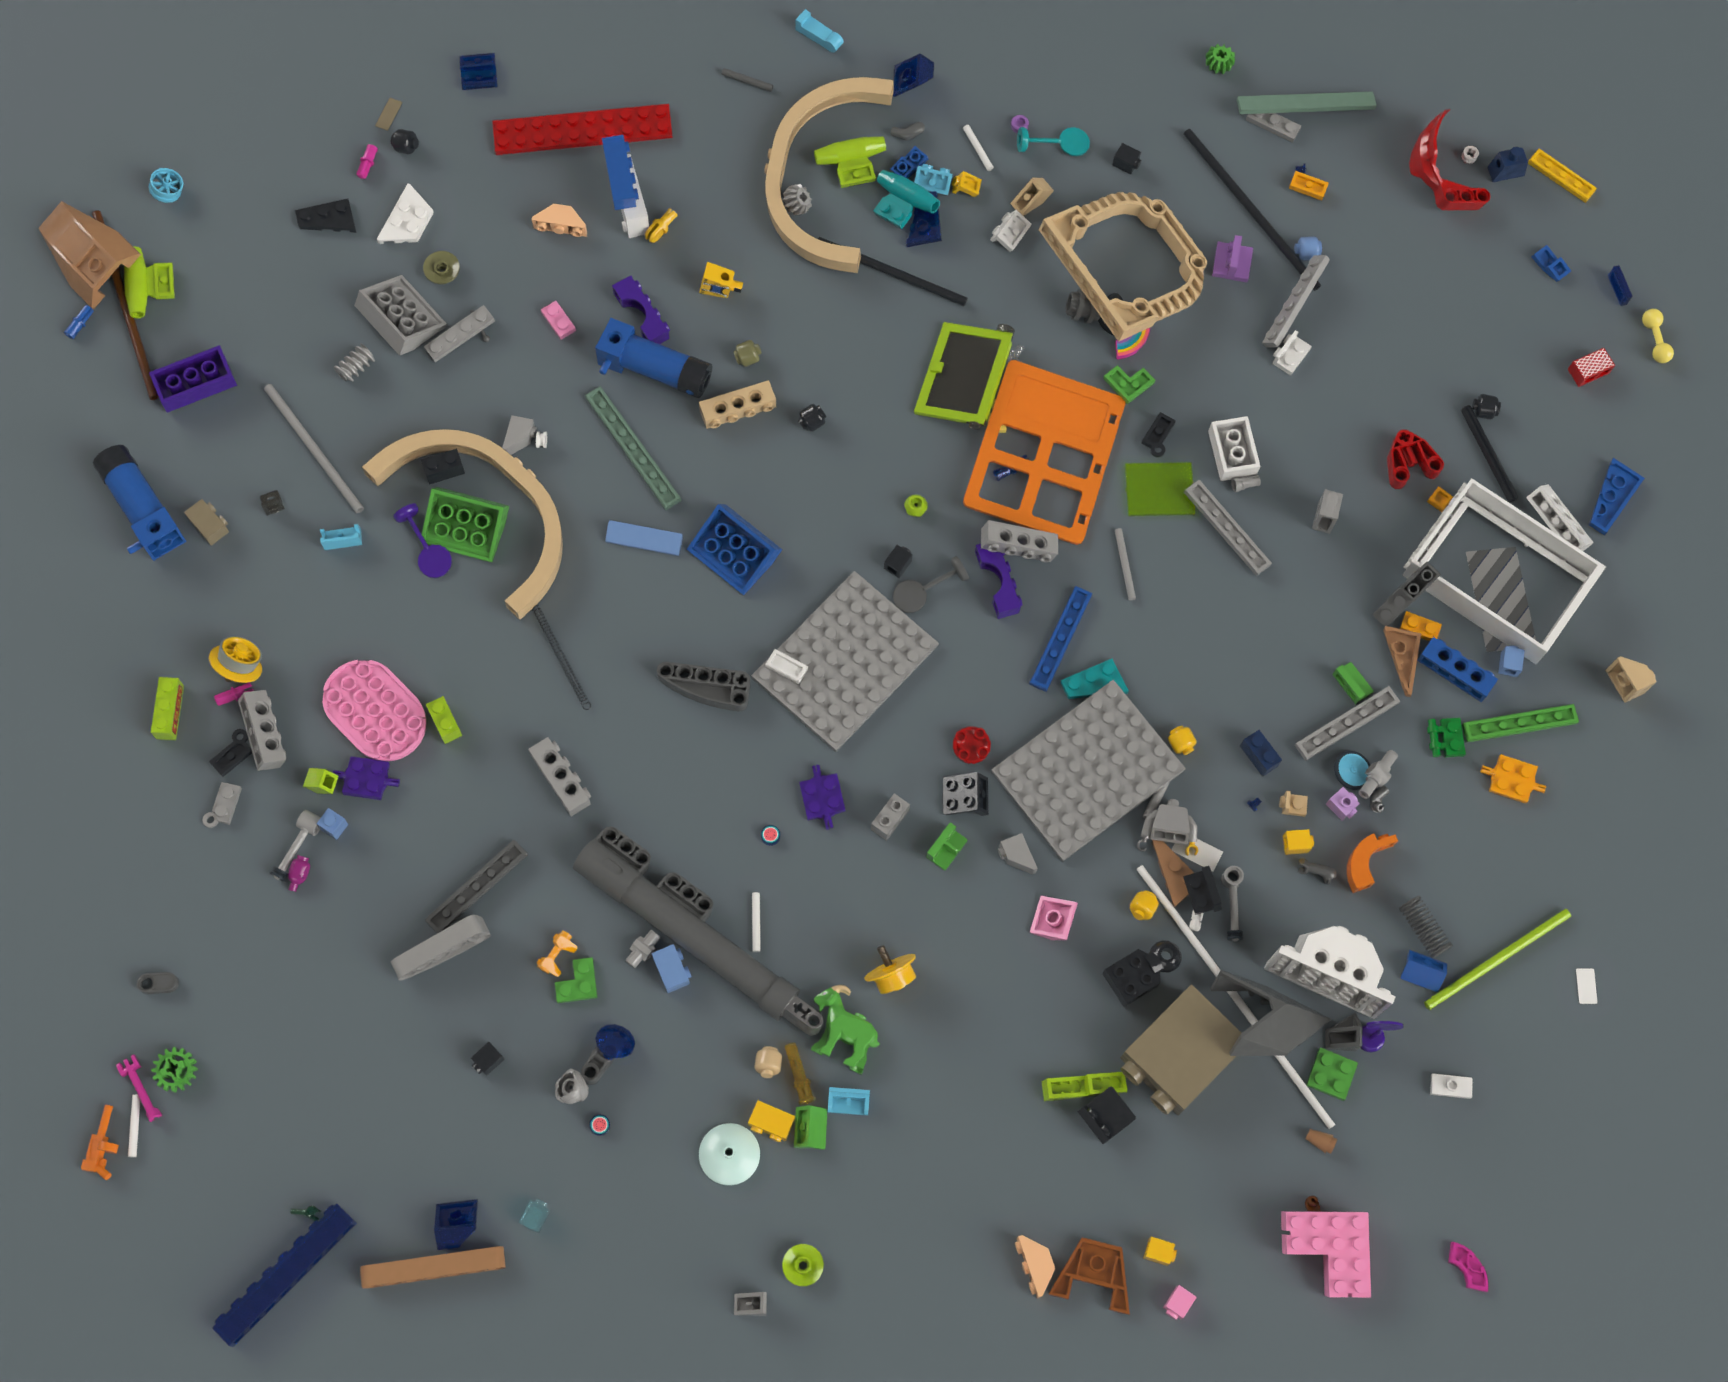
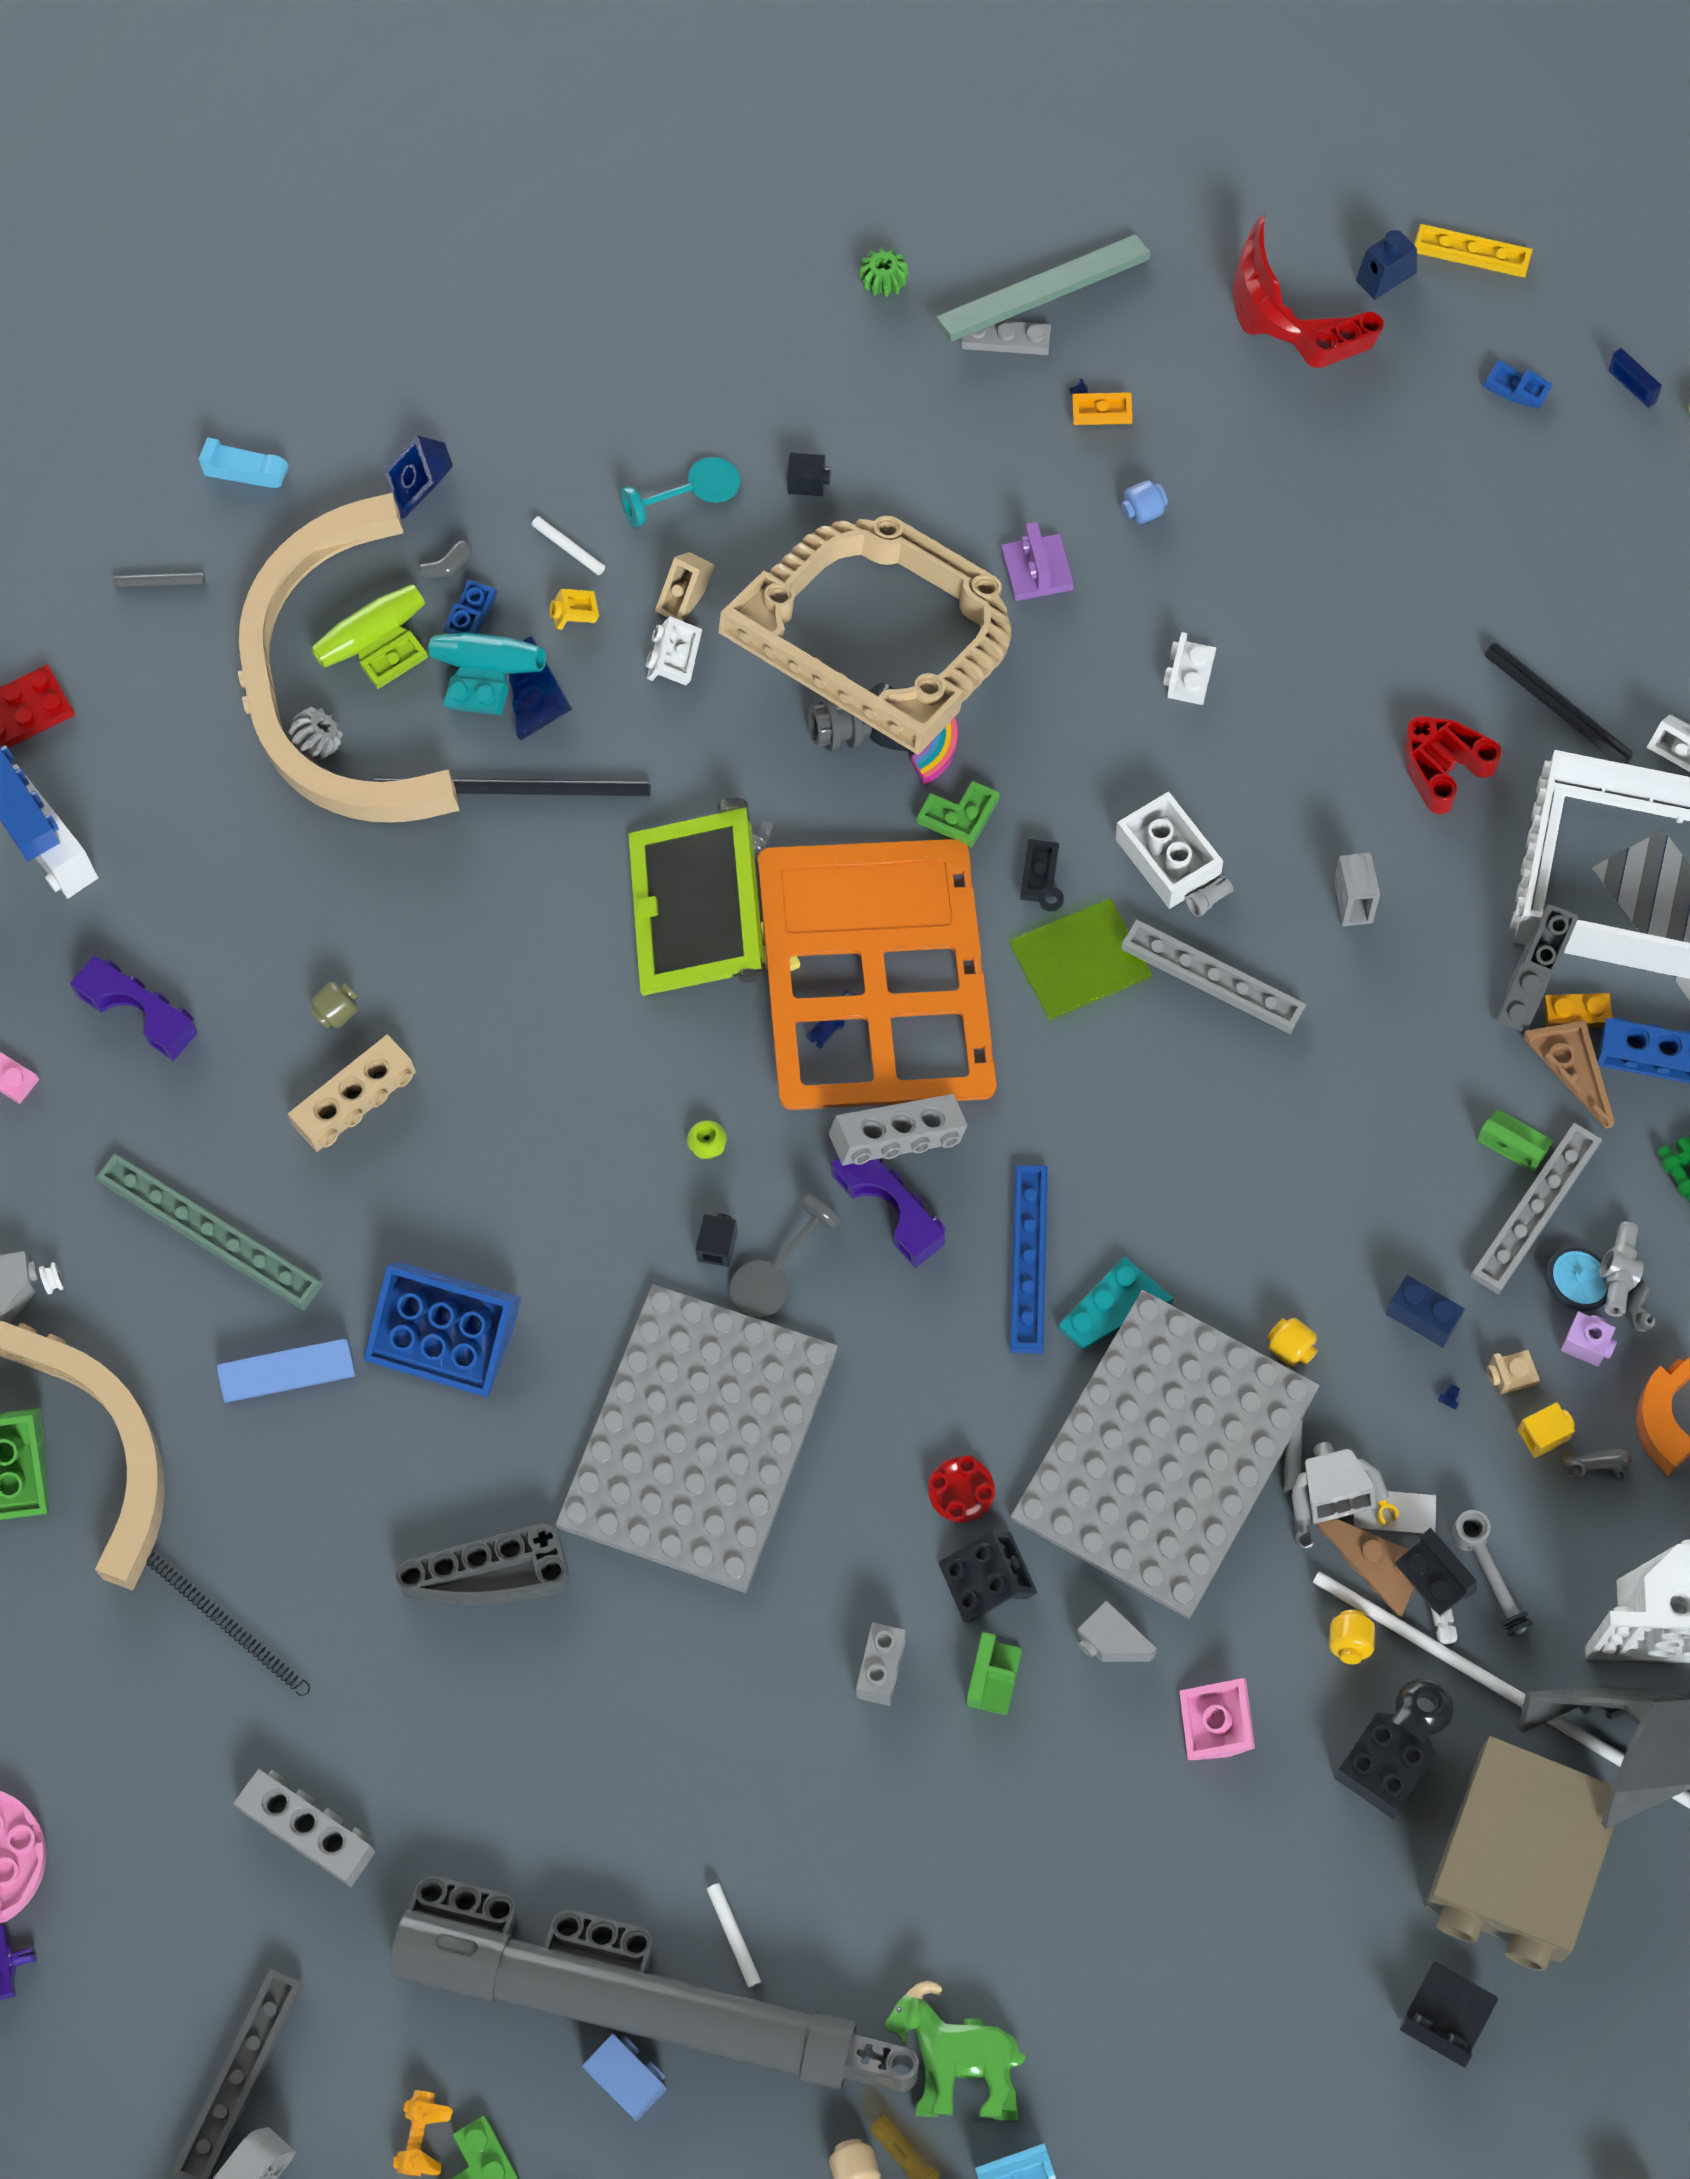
camera: 15 degrees left, 5 degrees down
(444, 720) = (70, 1813): lime piece -> none
(623, 349) = (127, 1077): blue piece -> none
(642, 949) = (563, 2064): light grey axle -> none
(660, 226) = (111, 860): yellow arm -> none
(719, 281) = (242, 909): yellow torso -> none
(770, 835) = (697, 1777): tile -> none
(786, 666) = (608, 1485): white tile -> none
(812, 417) = (481, 1066): black head -> none
(822, 797) = (755, 1677): dark purple plate -> none
(893, 973) = (998, 1924): yellow piece -> none
(933, 179) = (519, 619): medium azure bracket -> none
(1019, 121) = (614, 482): medium lavender tile -> none
(1082, 1086) = (1386, 1981): lime slope -> none
(1125, 564) = (1078, 1099): light grey bar -> none
(1246, 202) = (1033, 477): black piece -> none
(1295, 301) = (1162, 588): light grey plate -> none
(1440, 499) = (1516, 802): light orange tile -> none
(1467, 158) = (1322, 278): white bush -> none
(1486, 406) = (1522, 634): black head -> none
(1591, 367) = (1649, 514): red panel -> none

